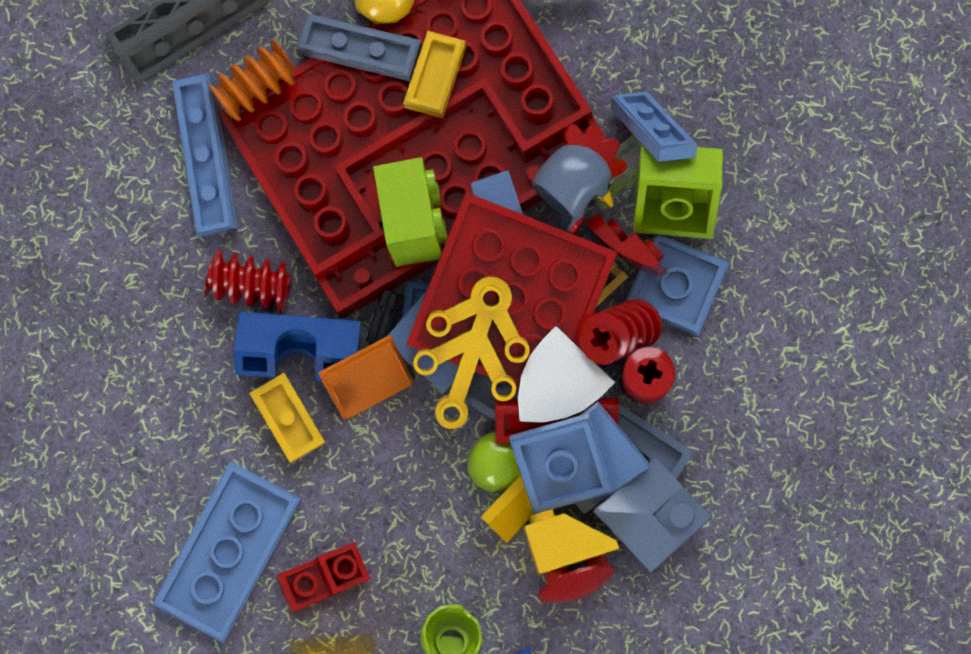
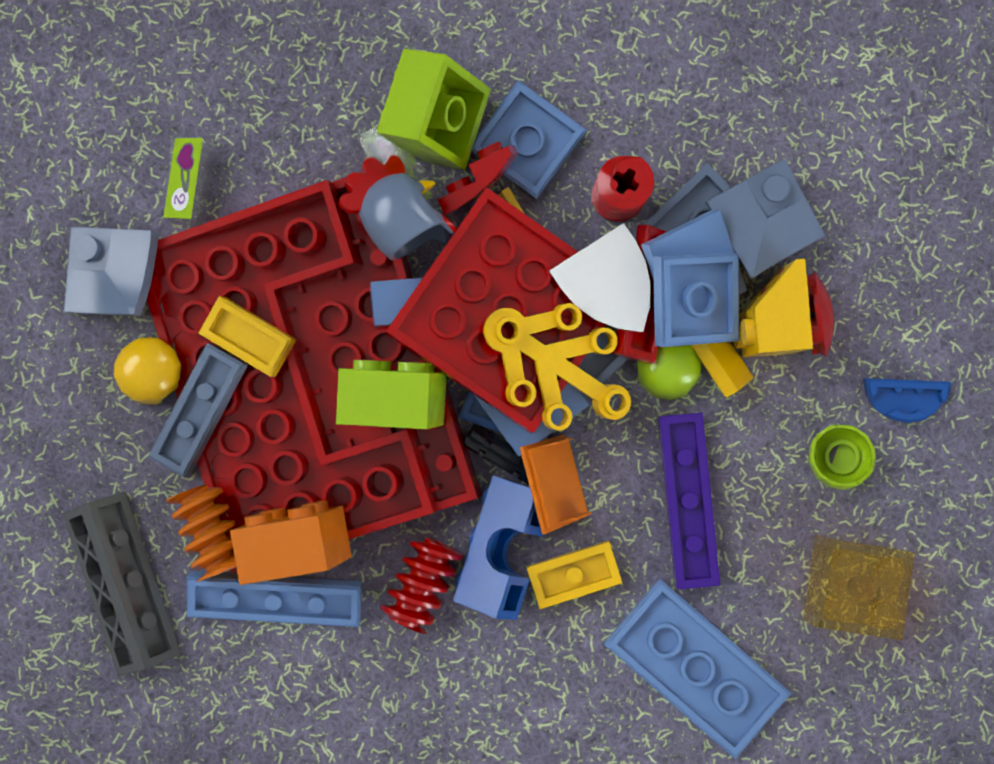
camera: 80 degrees left, 5 degrees up
(261, 154) = (292, 544): none -> orange brick
(323, 577) = (746, 574): red slope -> none
(378, 507) = (688, 501): none -> dark purple plate
(620, 331) = (569, 206): red piece -> none
(653, 126) = (361, 116): medium blue tile -> none

